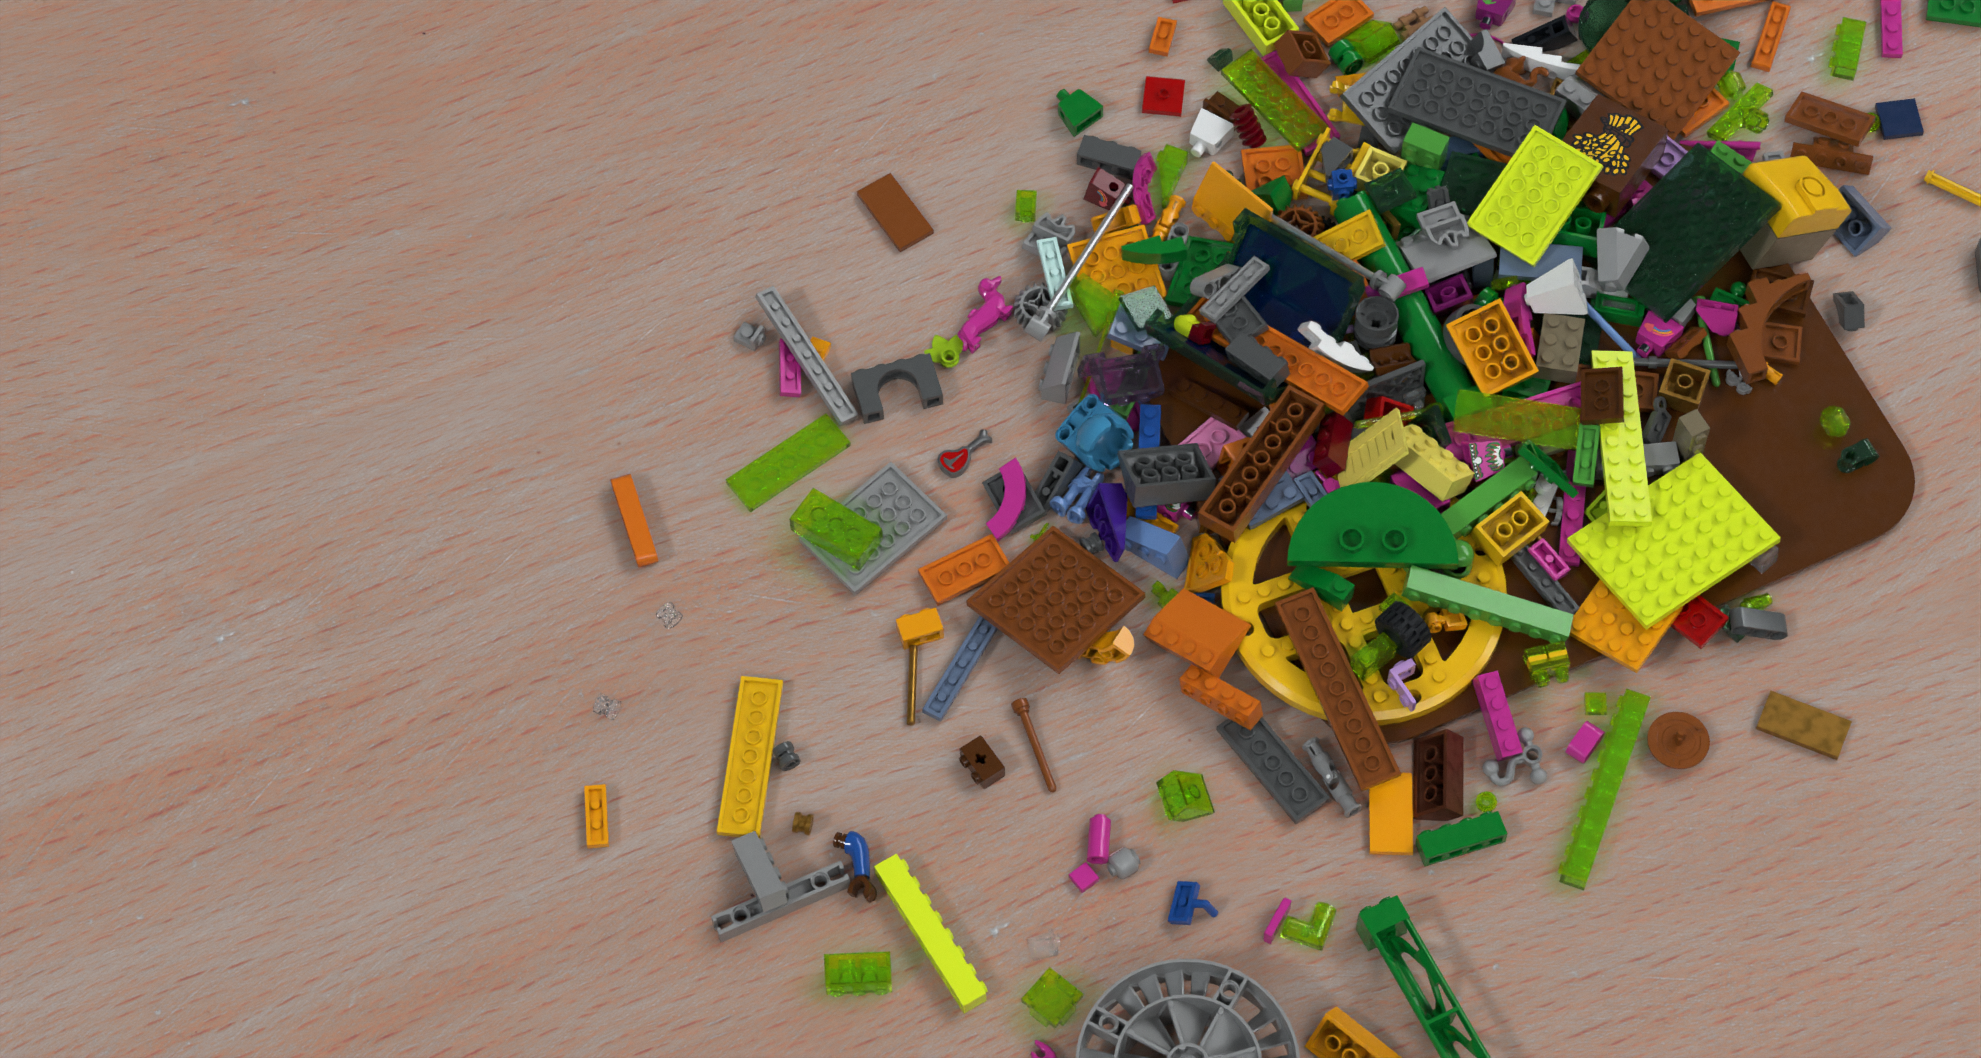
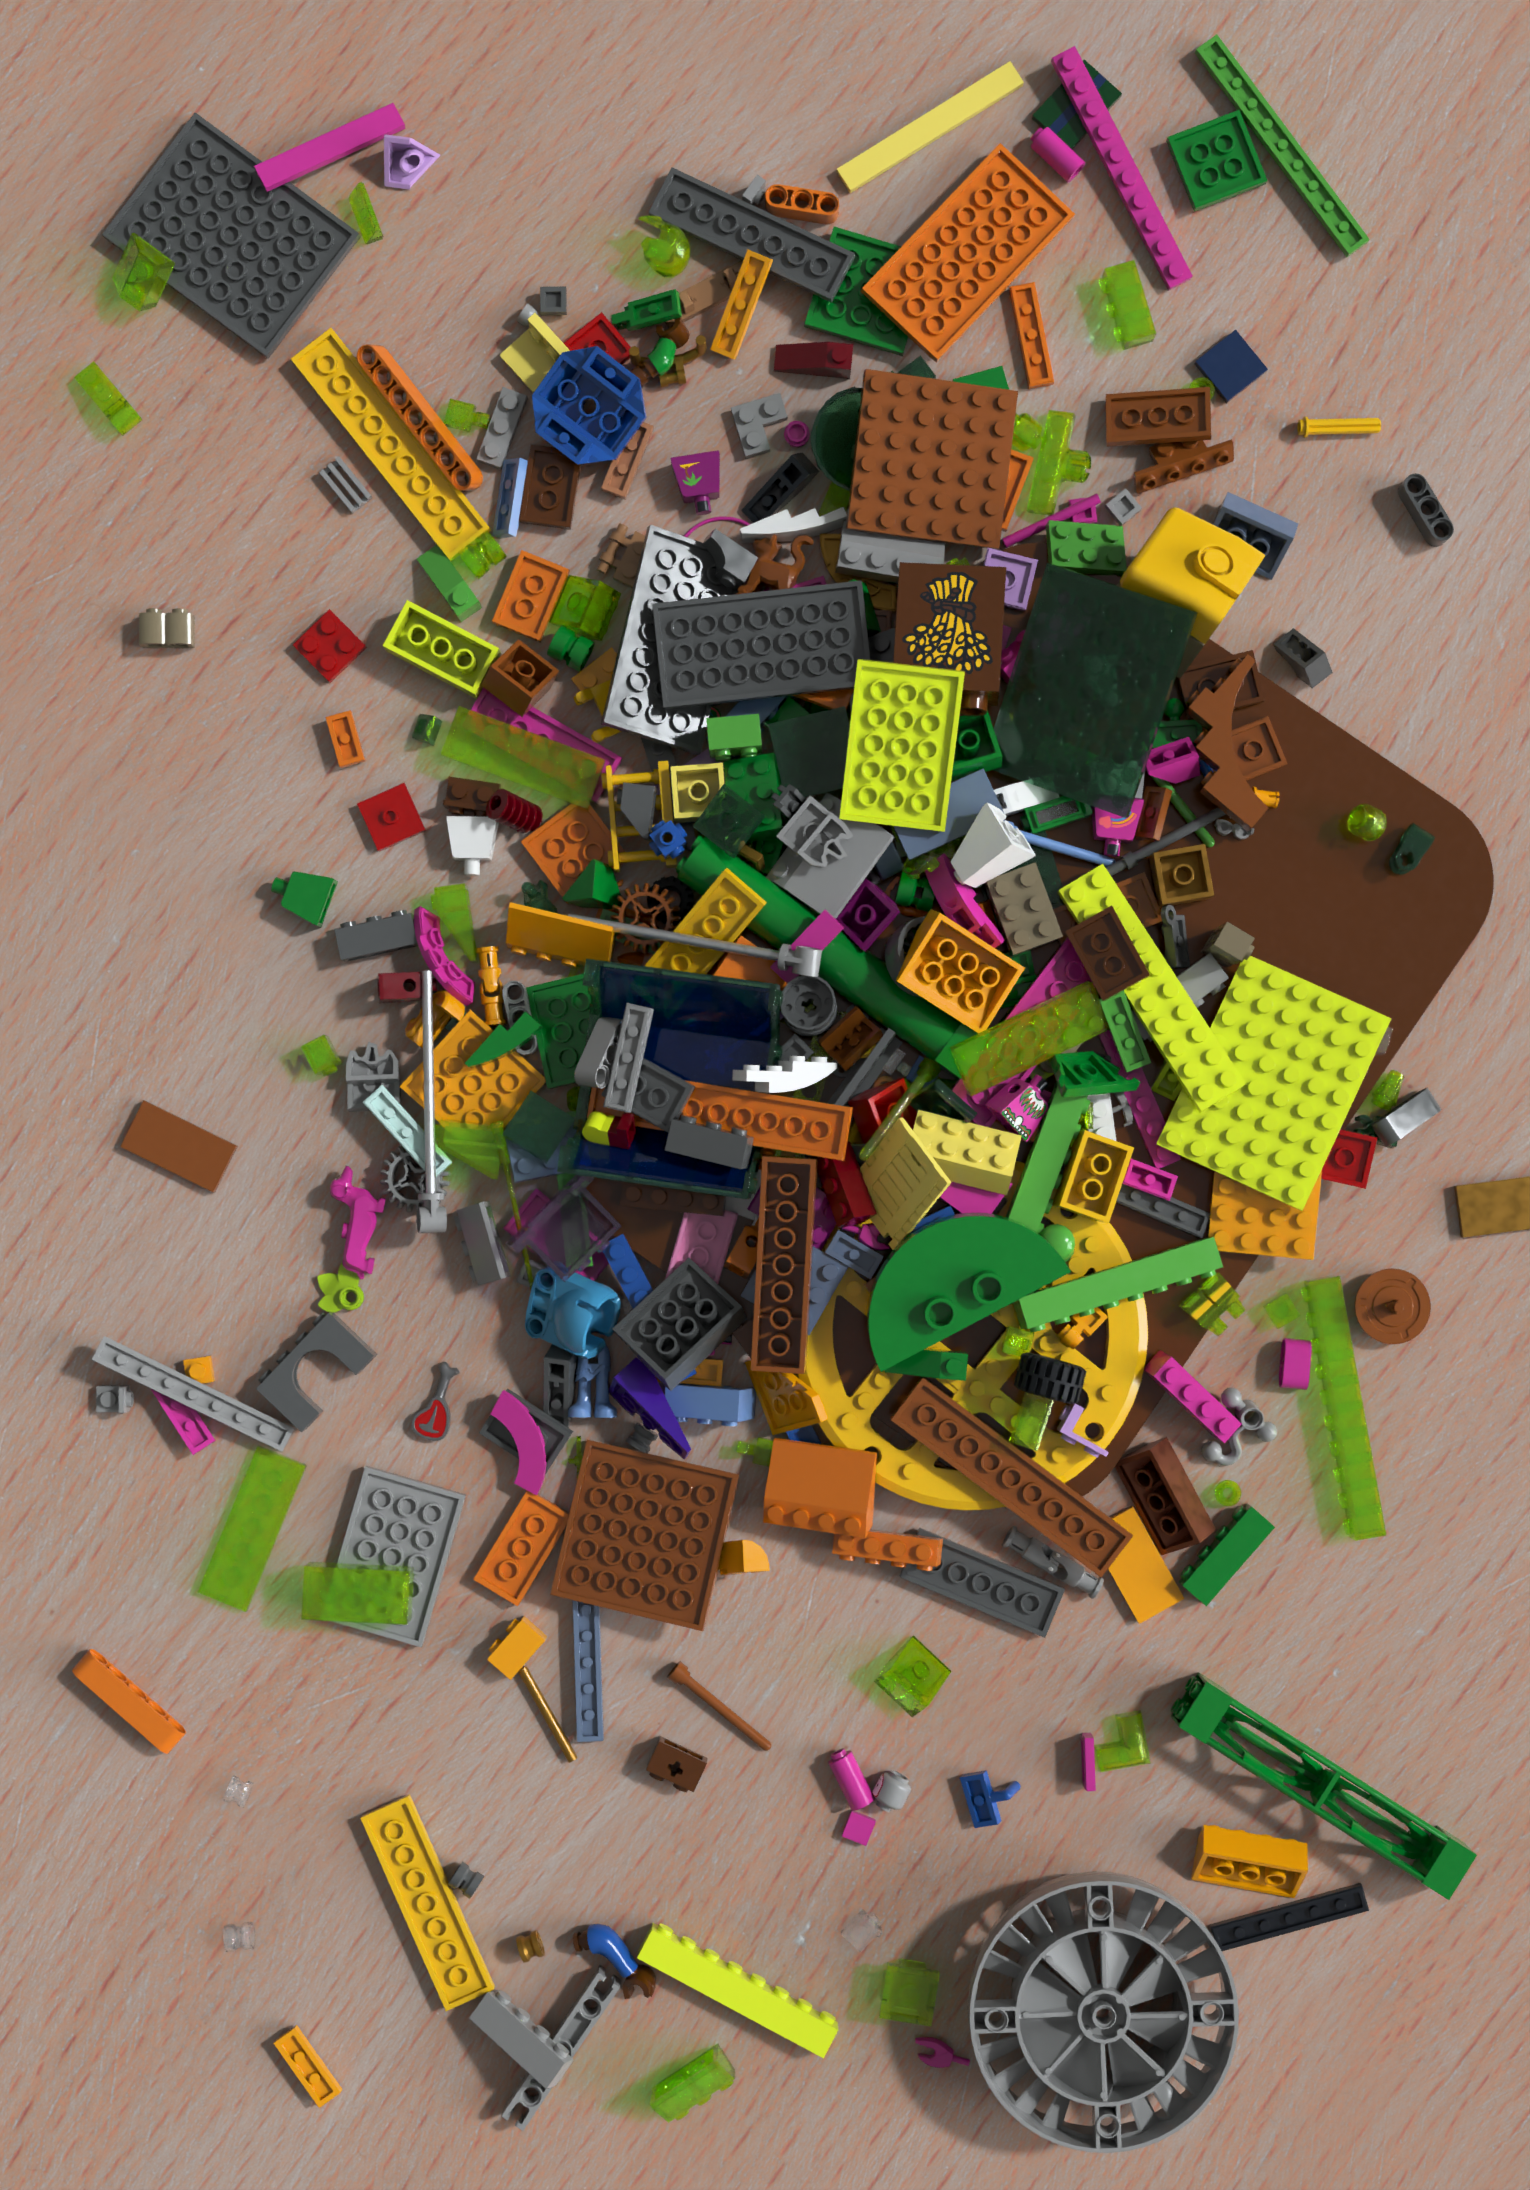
camera: 30 degrees left, 25 degrees up
(1618, 257) = (1032, 764): light grey slope -> none

